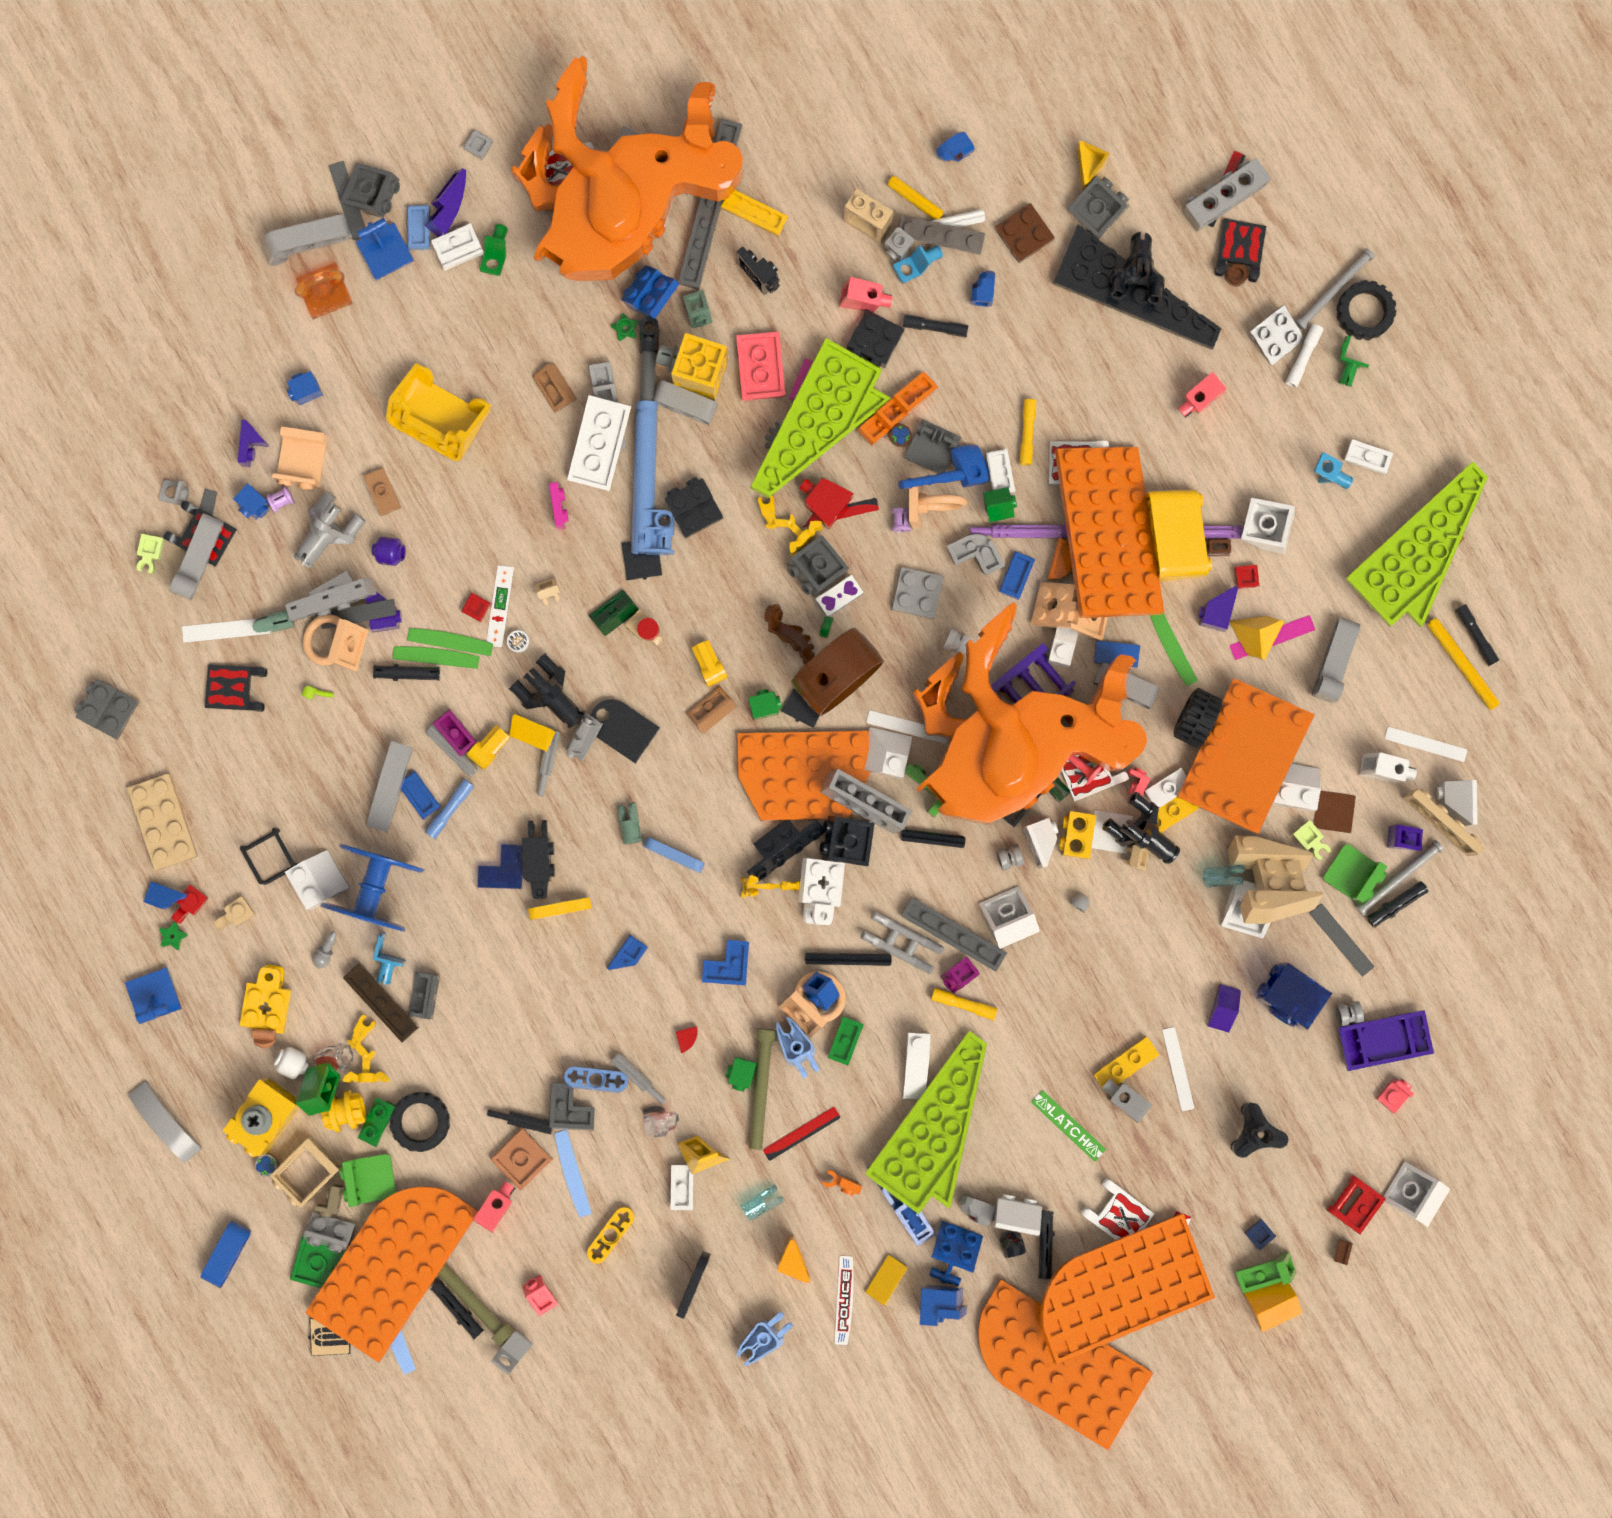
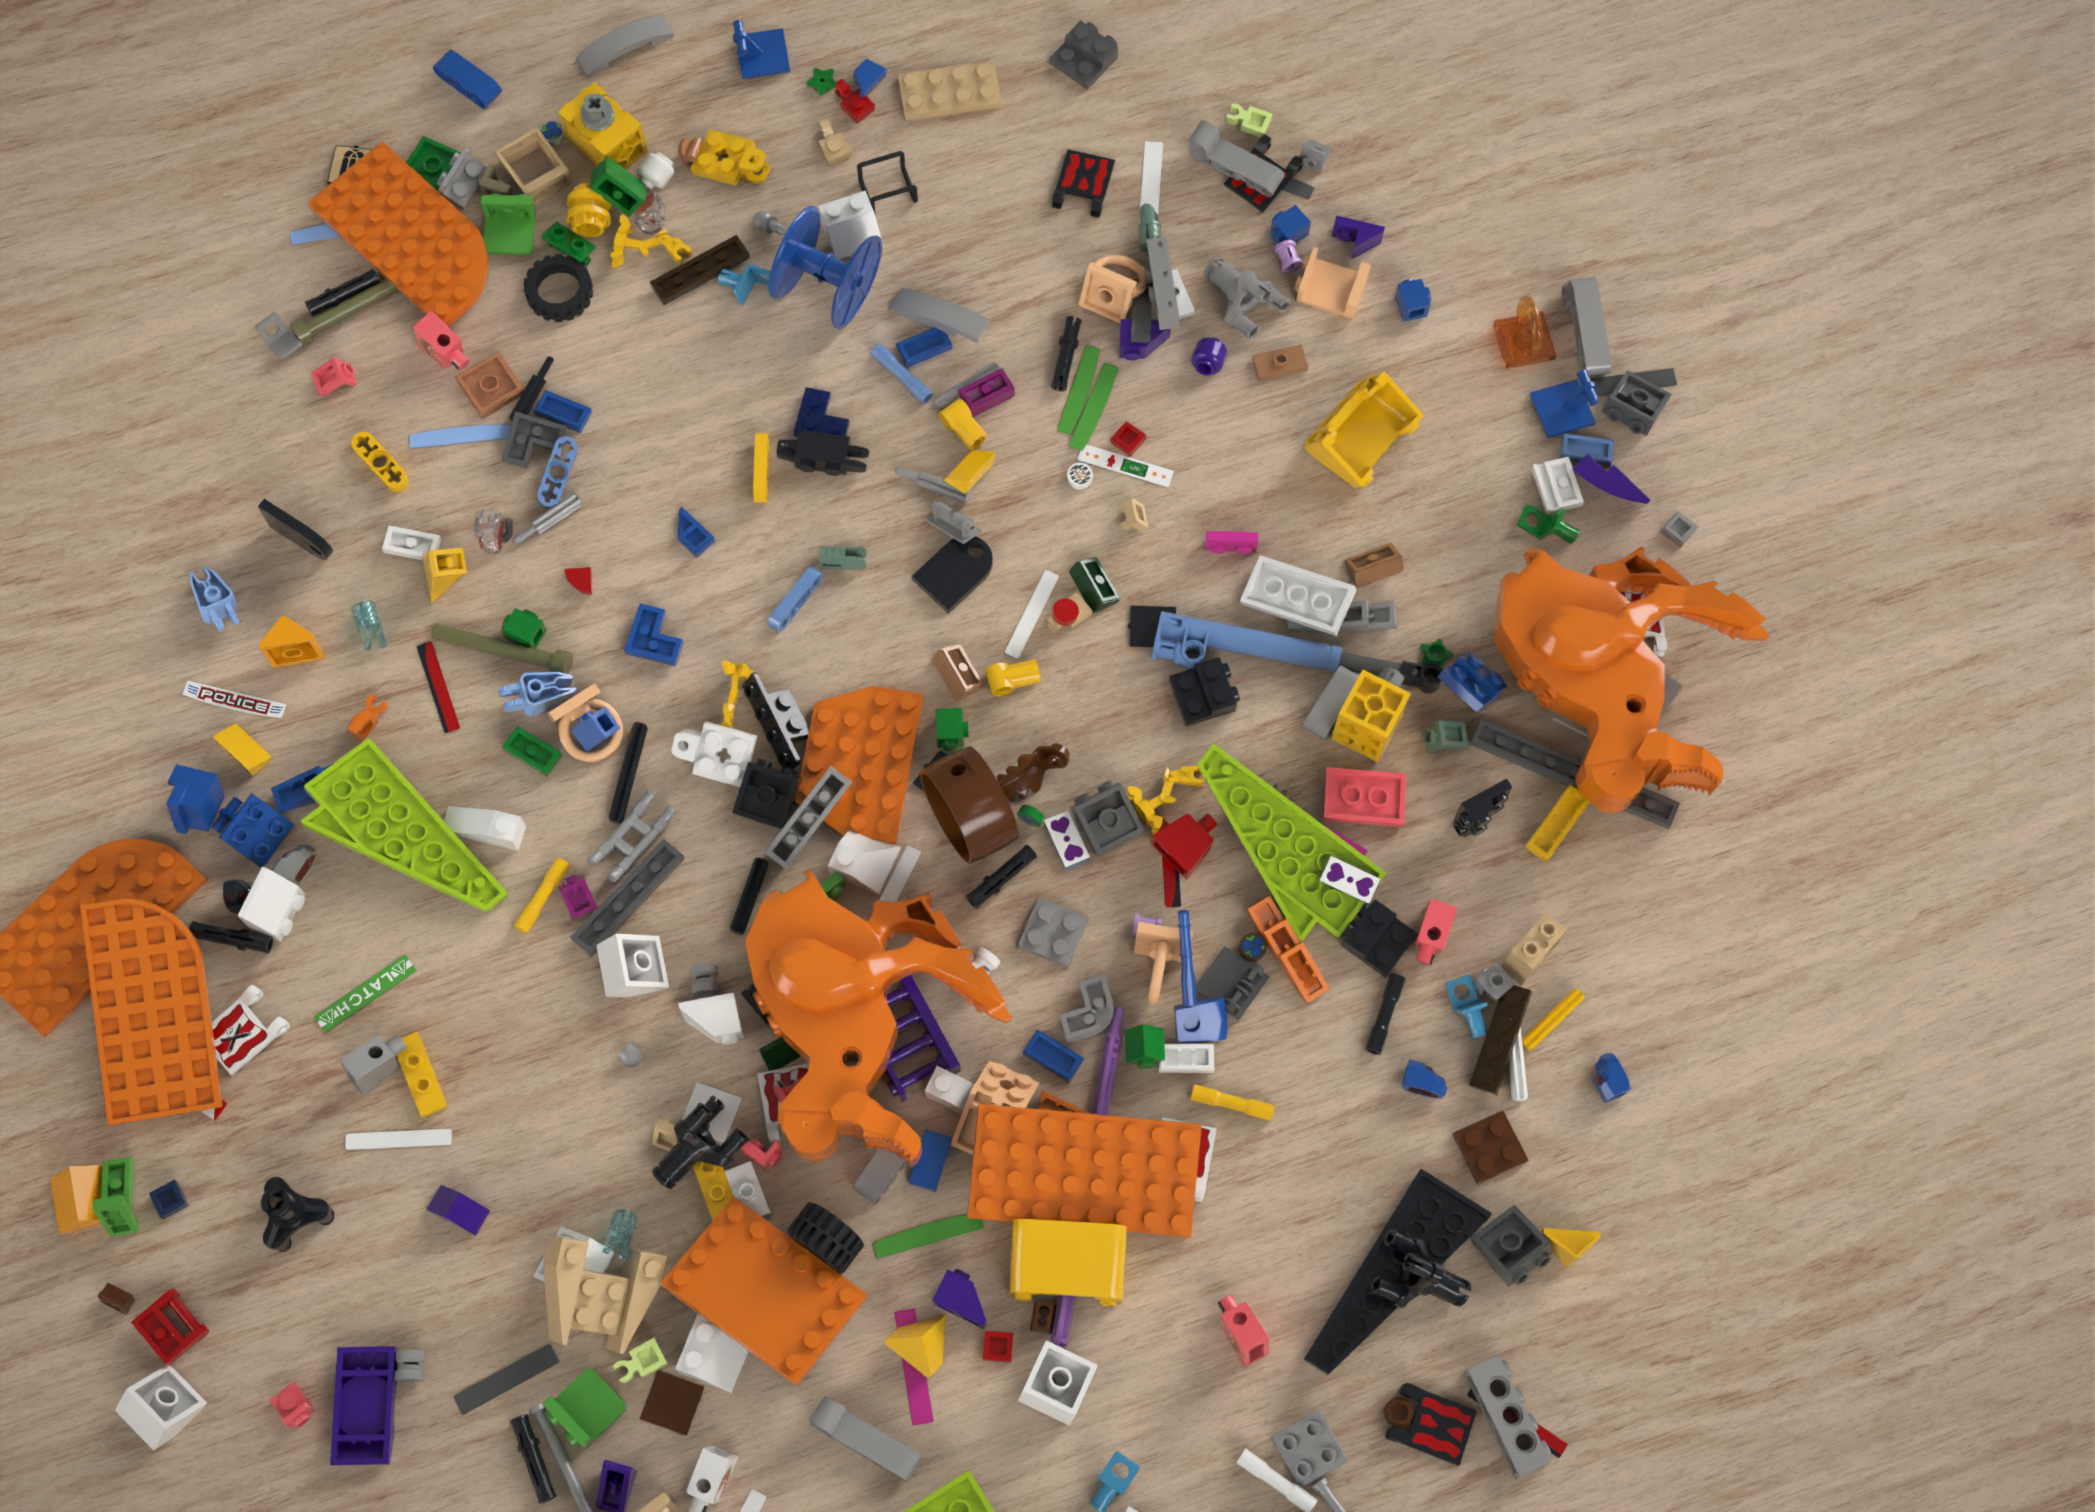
camera: 105 degrees right, 15 degrees down
(308, 692) = (1064, 253): lime hand -> none
(424, 995) = (696, 316): dark grey hinge -> none
(535, 1090) = (563, 411): none -> blue tile
(548, 692) = (1011, 495): black wheel -> none
(648, 659) = (1031, 614): none -> white sticker
(838, 365) = (1349, 879): none -> white tile
(884, 644) = (993, 883): none -> black pin
(1083, 836) = (710, 1073): yellow brick -> none
(1292, 996) = (448, 1291): clear blue brick -> none

